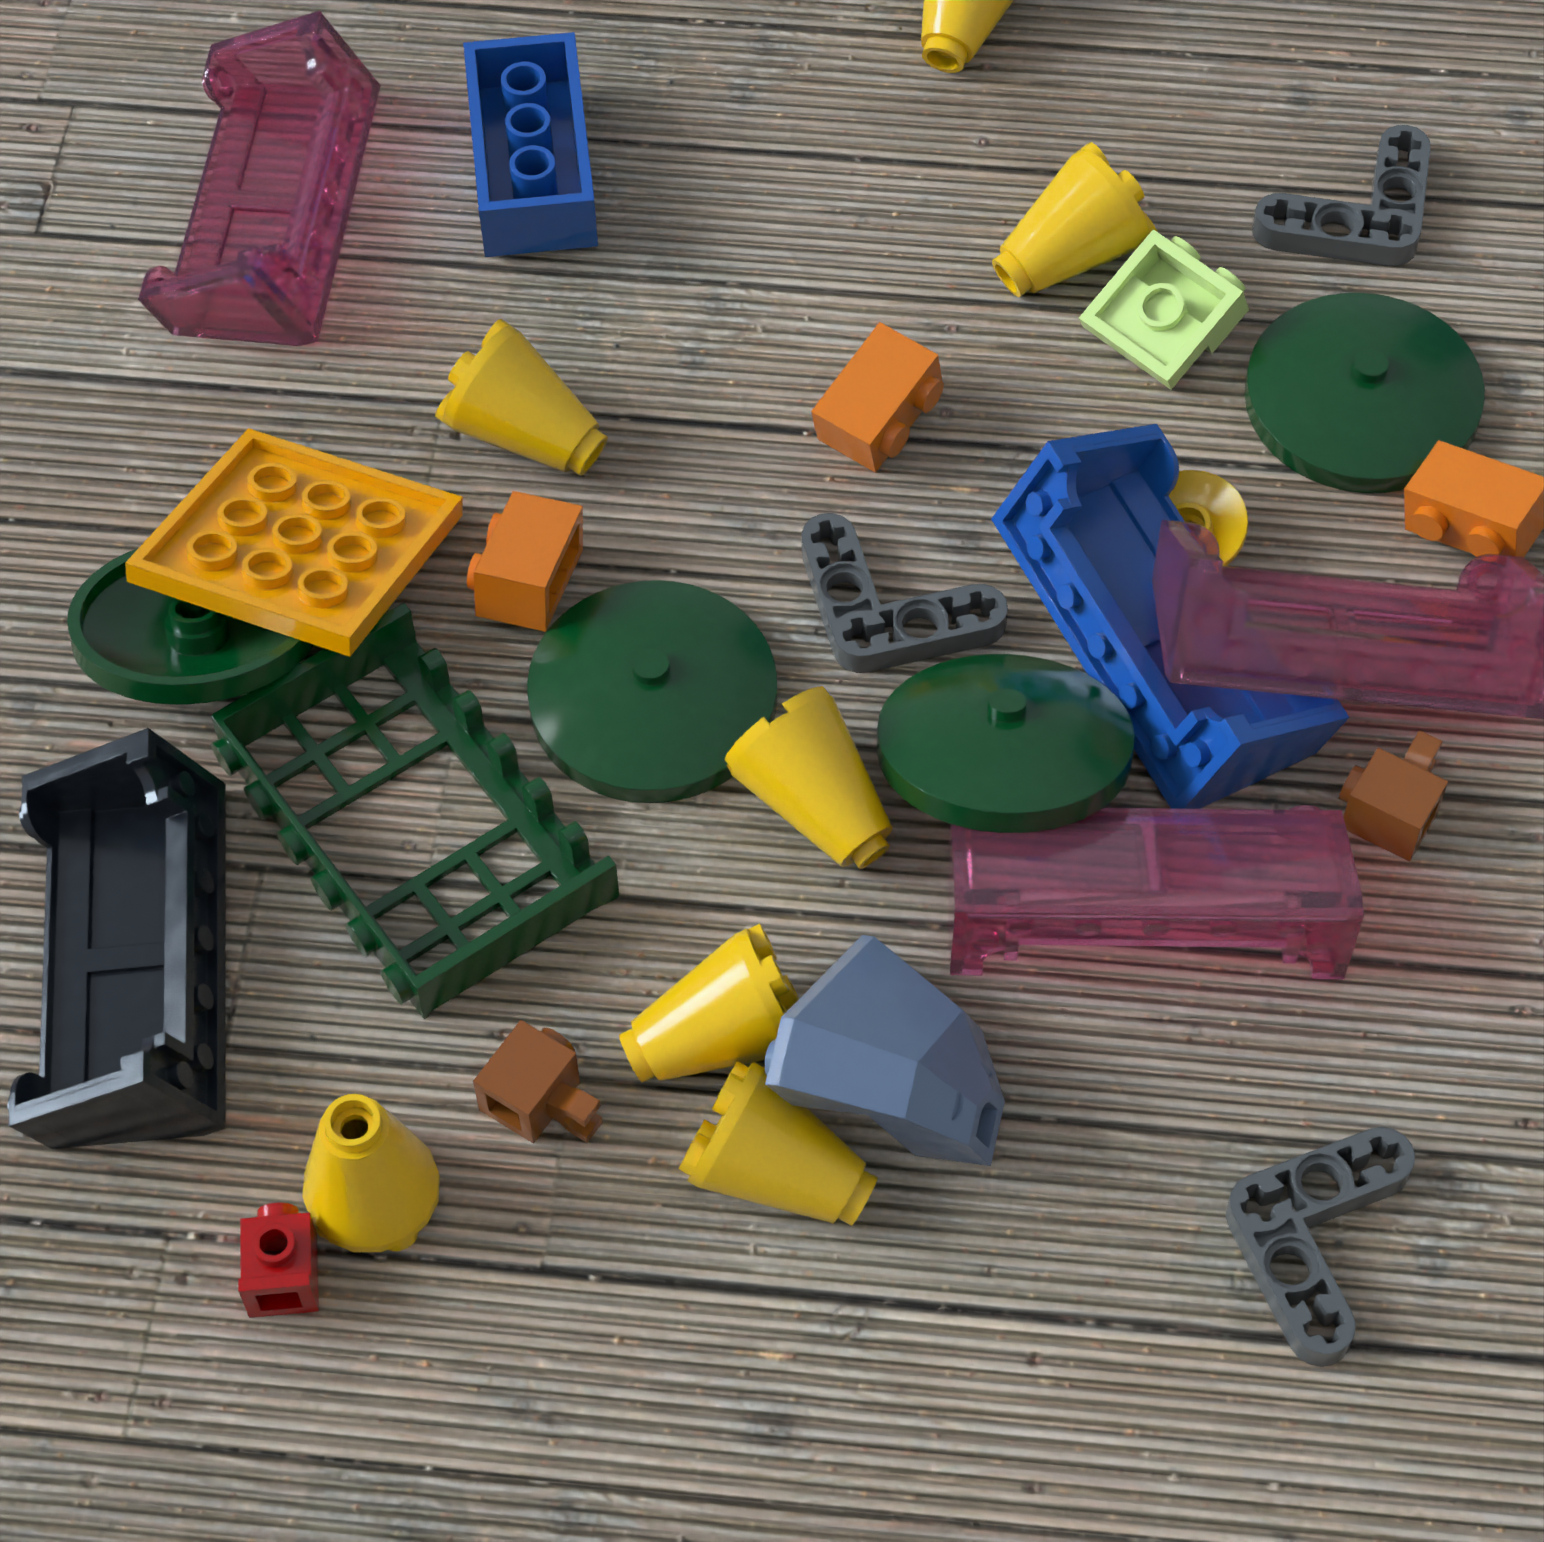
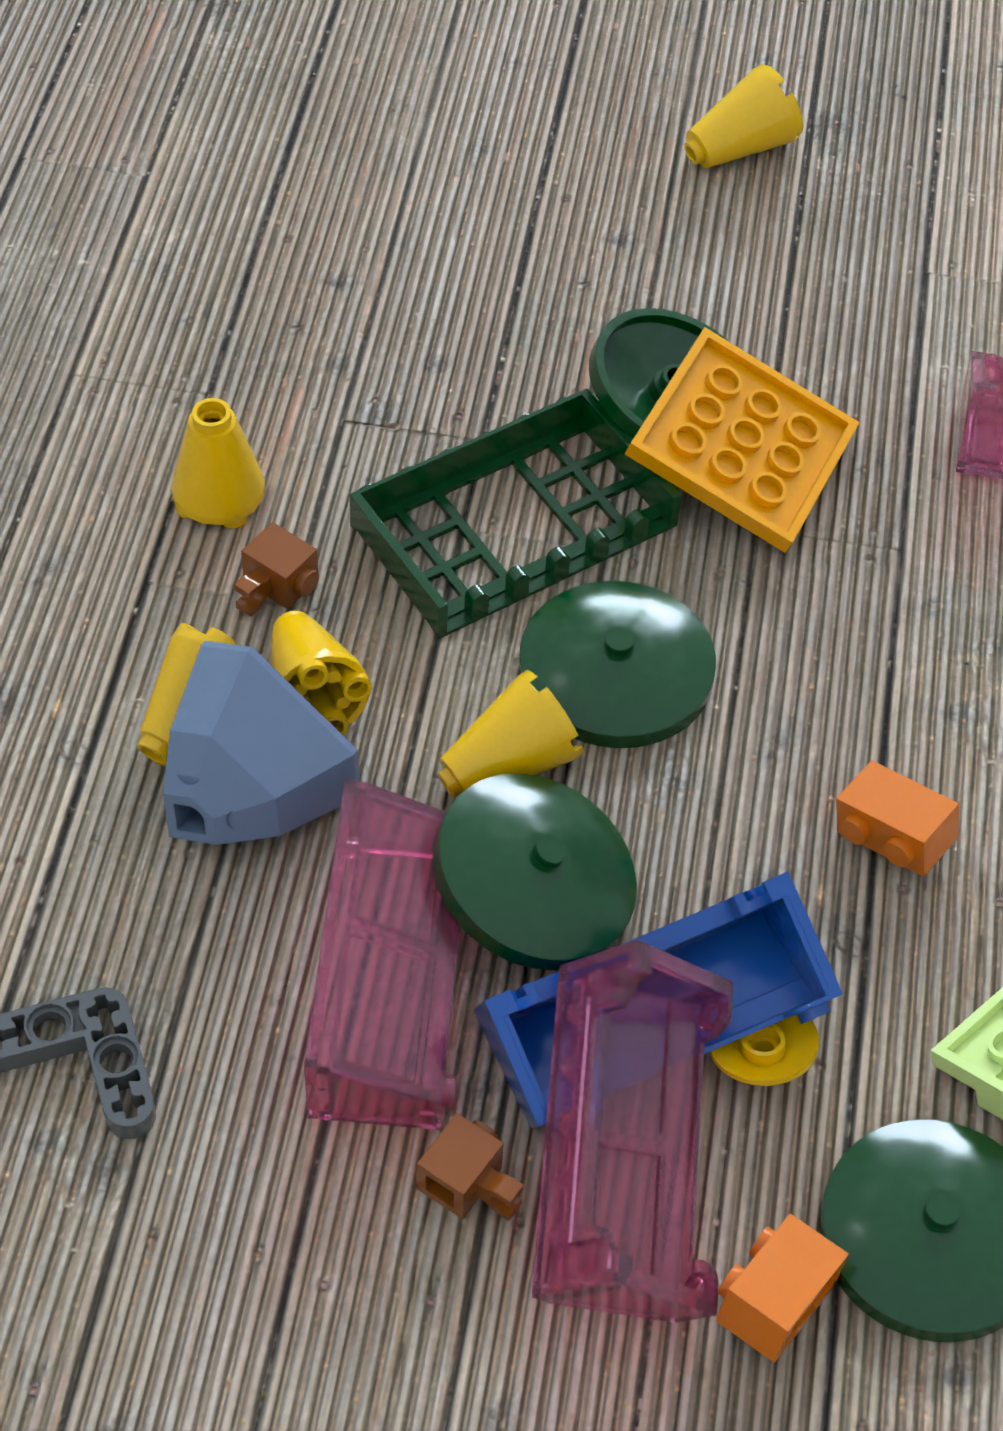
camera: 90 degrees right, 5 degrees down
(128, 948) = (412, 366): black windscreen -> none
(281, 1281) = (160, 434): red brick -> none
(520, 404) = (880, 573): yellow cone -> none
(526, 560) = (728, 578): orange brick -> none
(869, 618) = (683, 806): dark grey beam -> none

